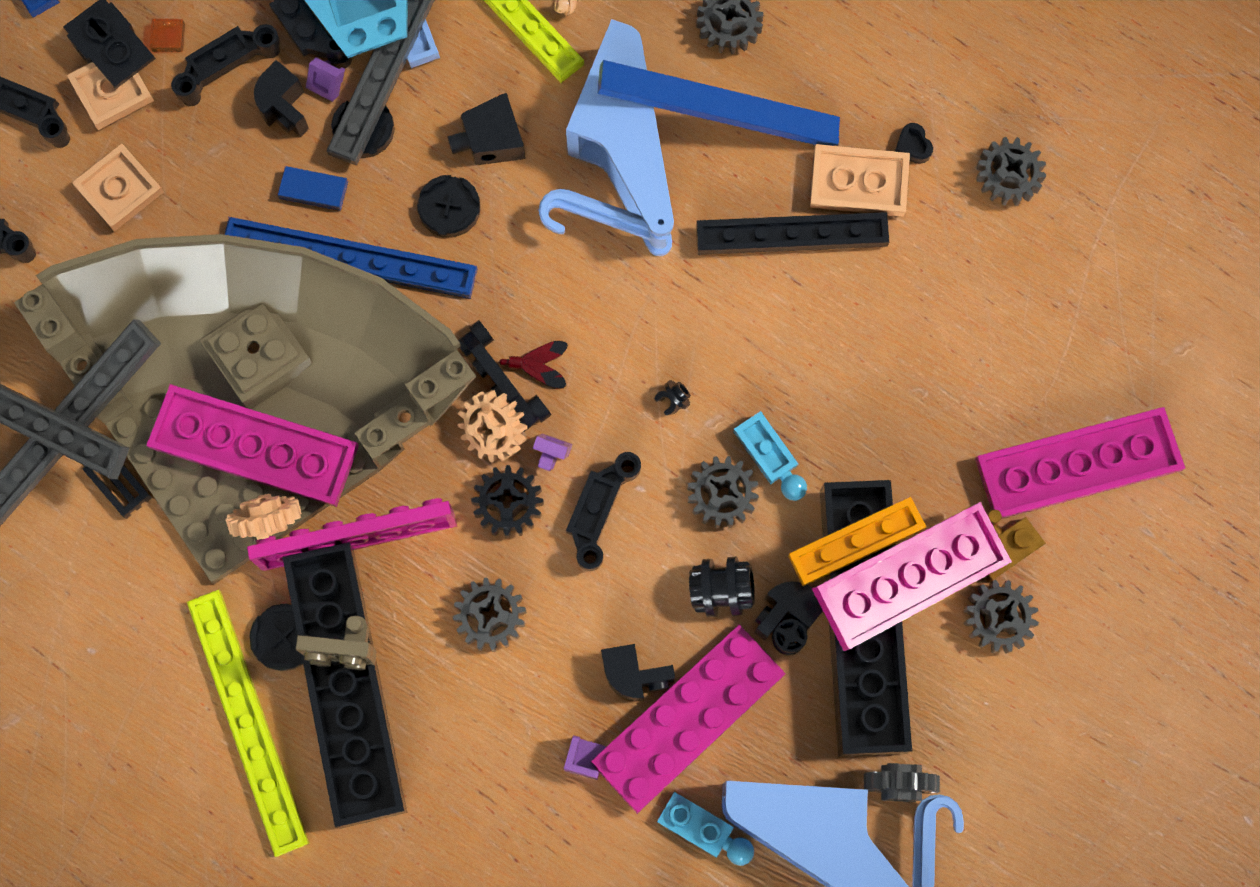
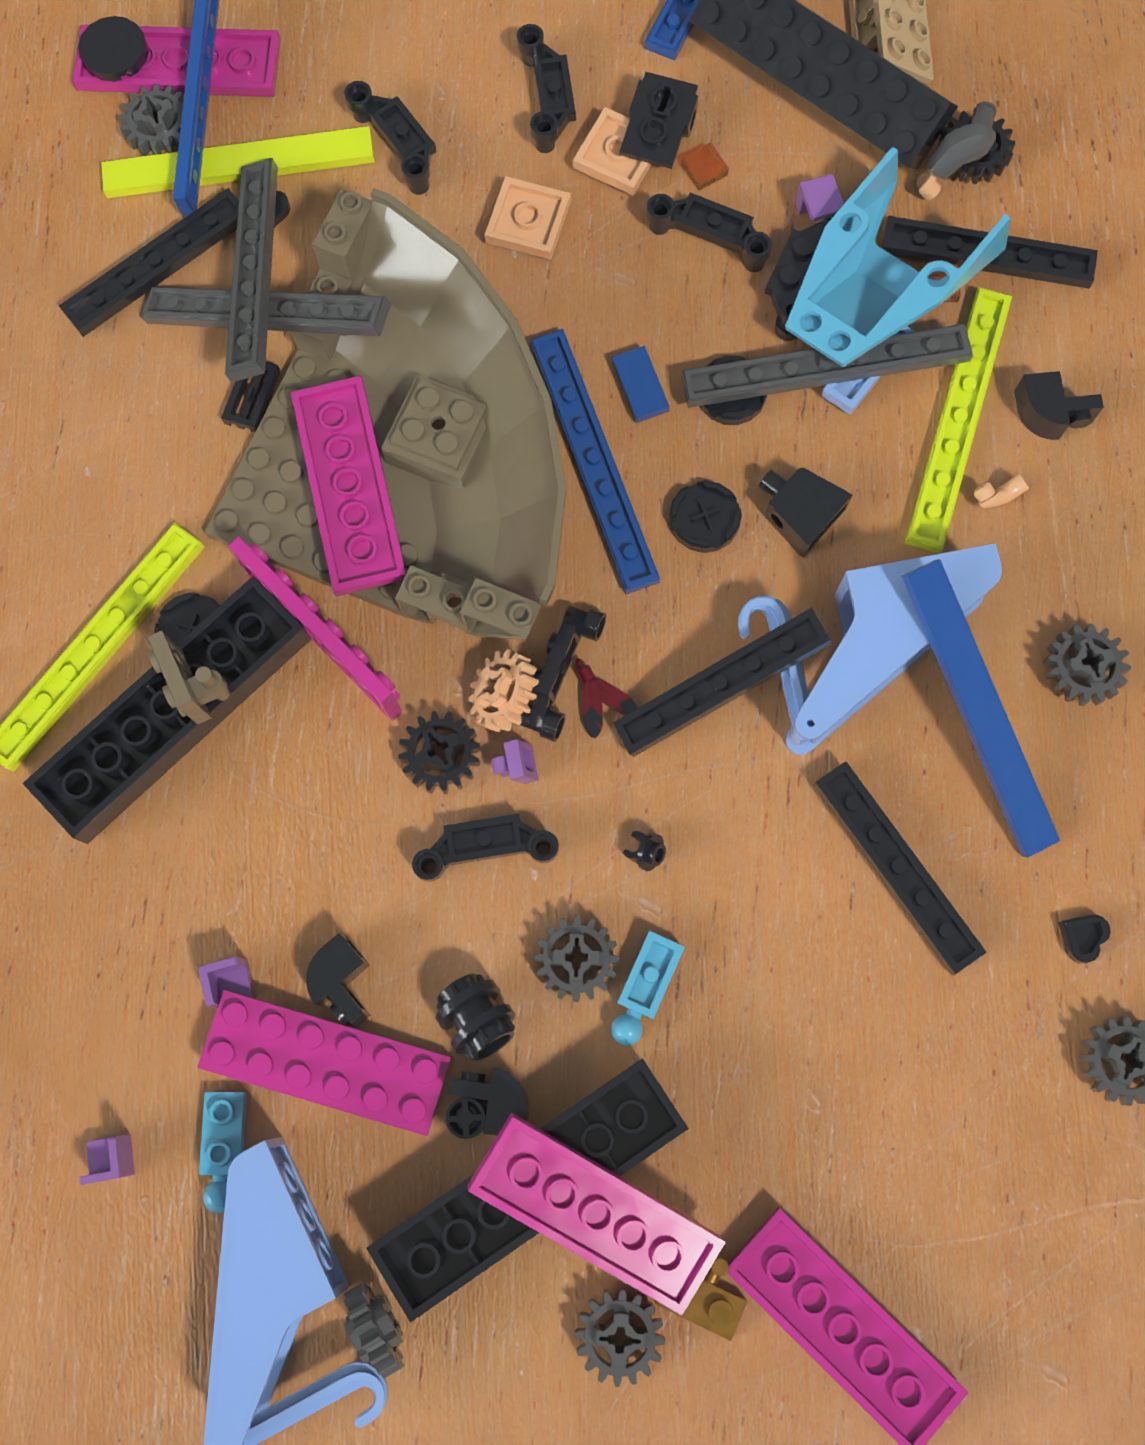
camera: 65 degrees right, 0 degrees up
(263, 516) = (279, 534): light nougat gear -> none
(274, 97) = (706, 291): black brick -> none
(324, 79) = (754, 325): medium lavender tile -> none
(475, 610) = (313, 788): dark grey gear -> none
(588, 267) = (722, 682): none -> black plate
(856, 541) = (597, 1131): light orange plate -> none
(859, 180) = (1004, 903): light nougat plate -> none

